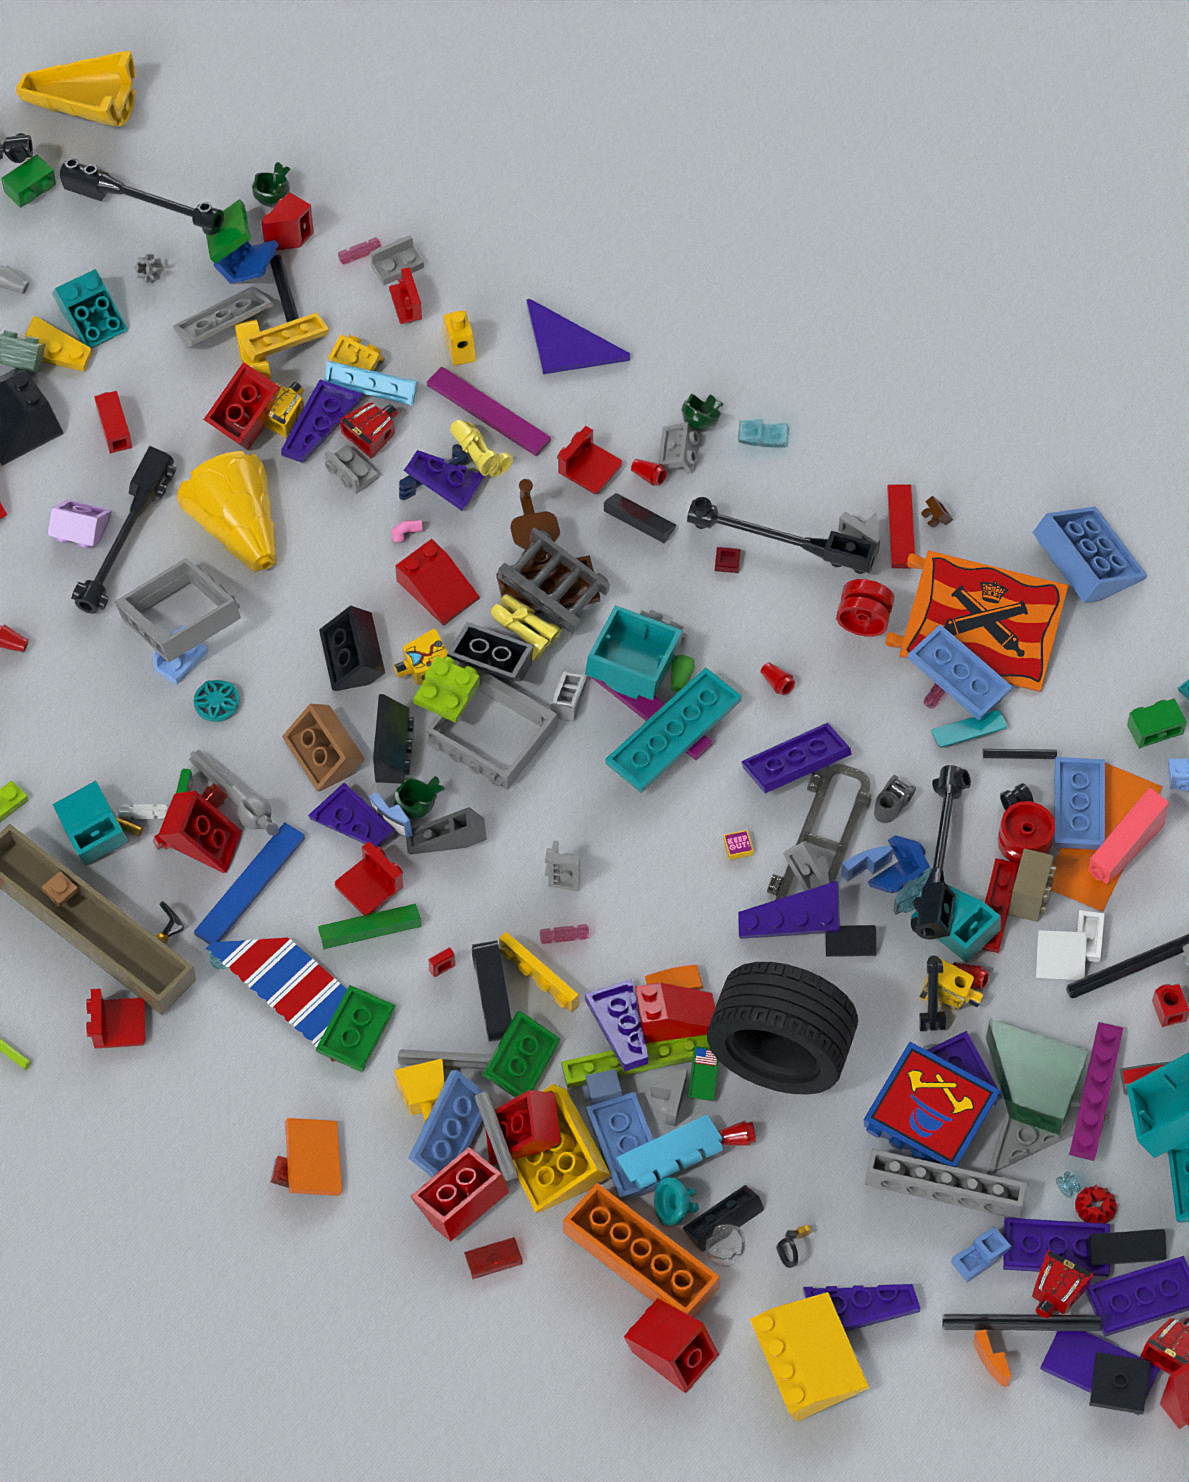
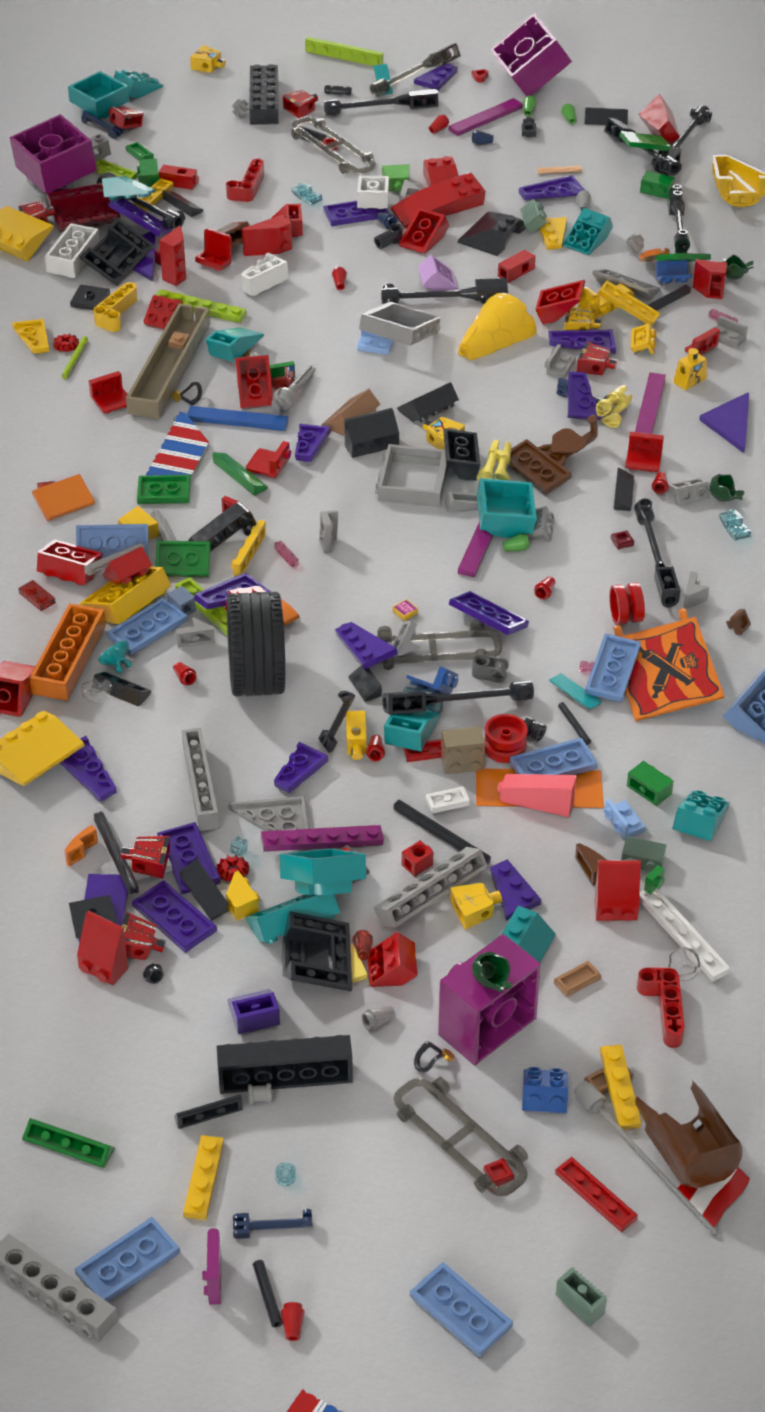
camera: 65 degrees right, 15 degrees down
(195, 259) = (650, 255): none -> orange tile
(216, 700) = (355, 367): teal wheel -> none
(371, 382) = (628, 350): medium azure tile -> none
(393, 816) = (320, 451): medium blue slope -> none
(405, 527) = (534, 397): bright pink arm -> none
(416, 797) = (338, 458): dark green hat -> none
(435, 582) = (503, 419): red slope -> none
(447, 688) = (422, 441): lime plate -> none
(448, 833) = (325, 481): dark grey slope -> none
(550, 603) = (523, 452): flat silver fence -> none
(664, 1152) = (151, 643): medium azure windscreen -> none
(673, 730) = (467, 548): teal plate -> none
(703, 1074) = (214, 643): green tile -> none
(790, 1236) = (129, 725): black piece -> none
(872, 859) = (426, 667): medium blue slope -> none
(900, 524) = (719, 608): red tile -> none
(930, 1107) = (255, 751): panel -> none
(981, 1255) = (158, 818): medium blue slope -> none
(1035, 1074) = (312, 799): clear green slope -> none
(1061, 955) = (420, 787): white sticker -> none
(1151, 1211) = (241, 897): none -> yellow slope

